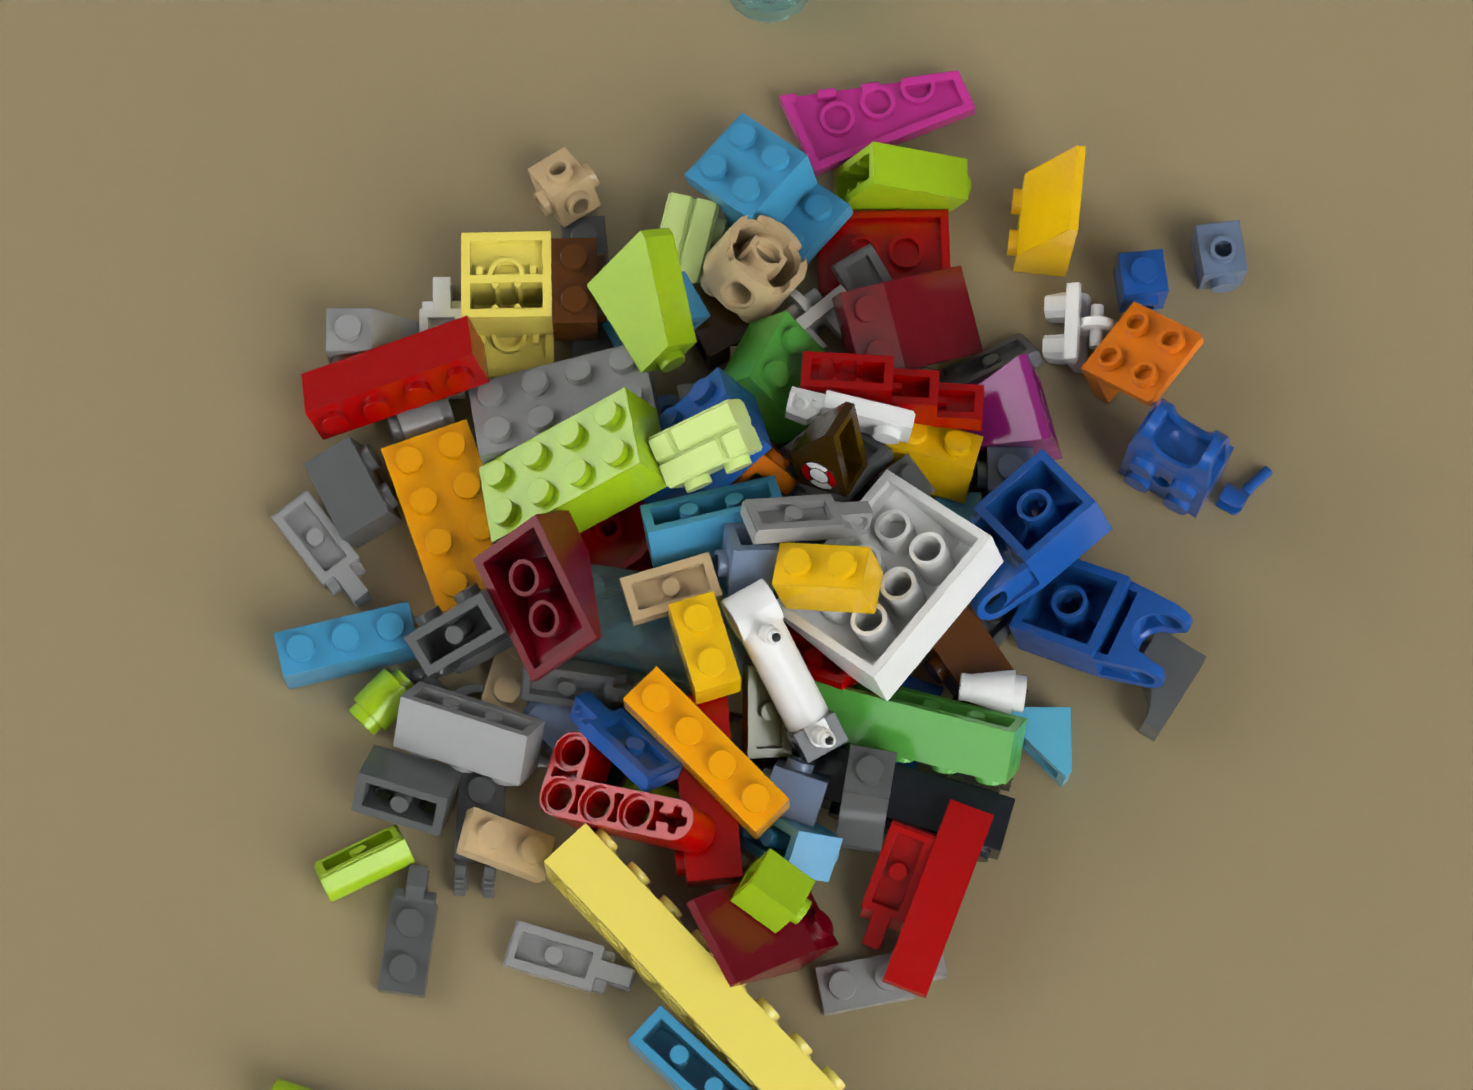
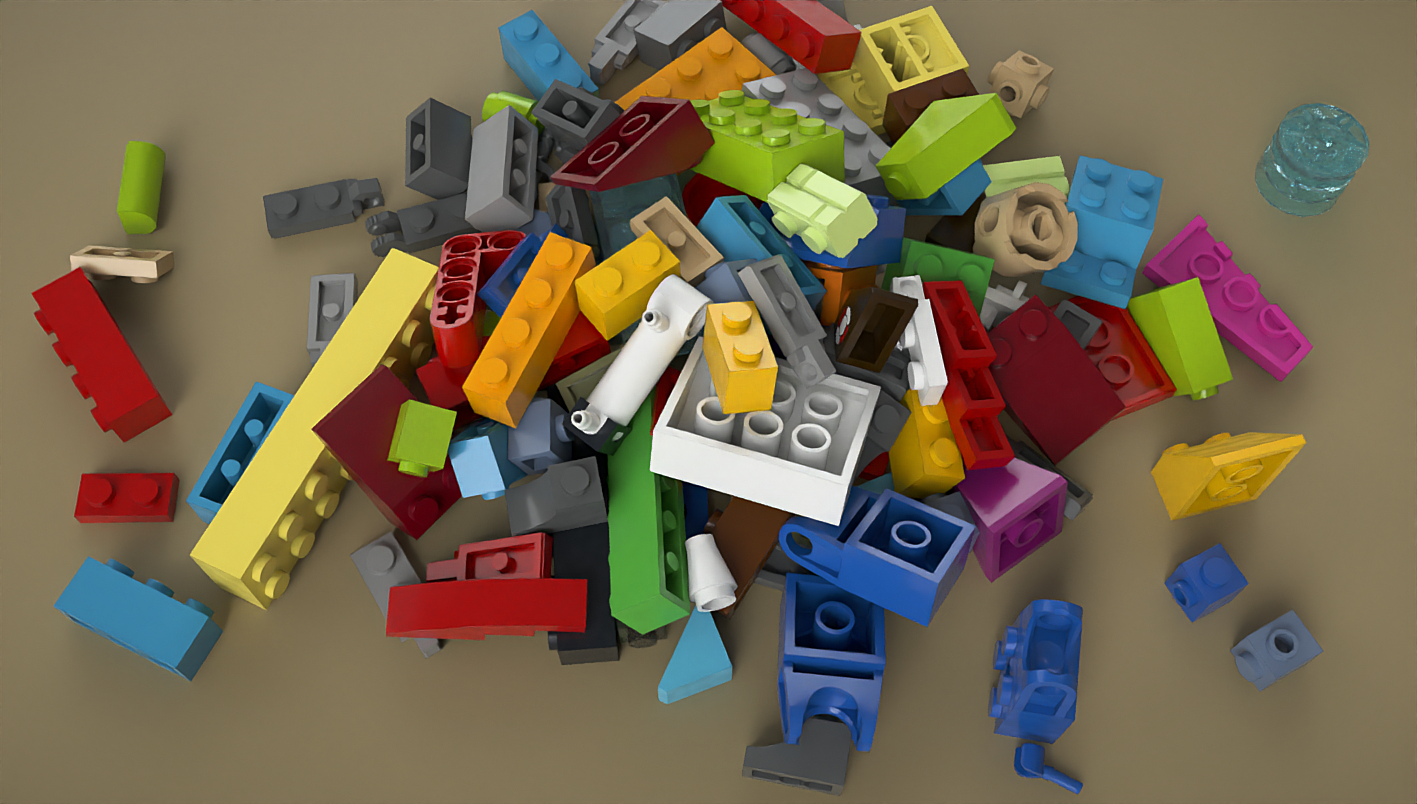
camera: 70 degrees right, 10 degrees down
(363, 863) = (367, 148): lime brick -> none
(505, 844) = (417, 227): tan plate -> none
(1082, 327) = (1124, 544): white hips -> none
(1140, 356) = (1127, 600): orange bracket -> none

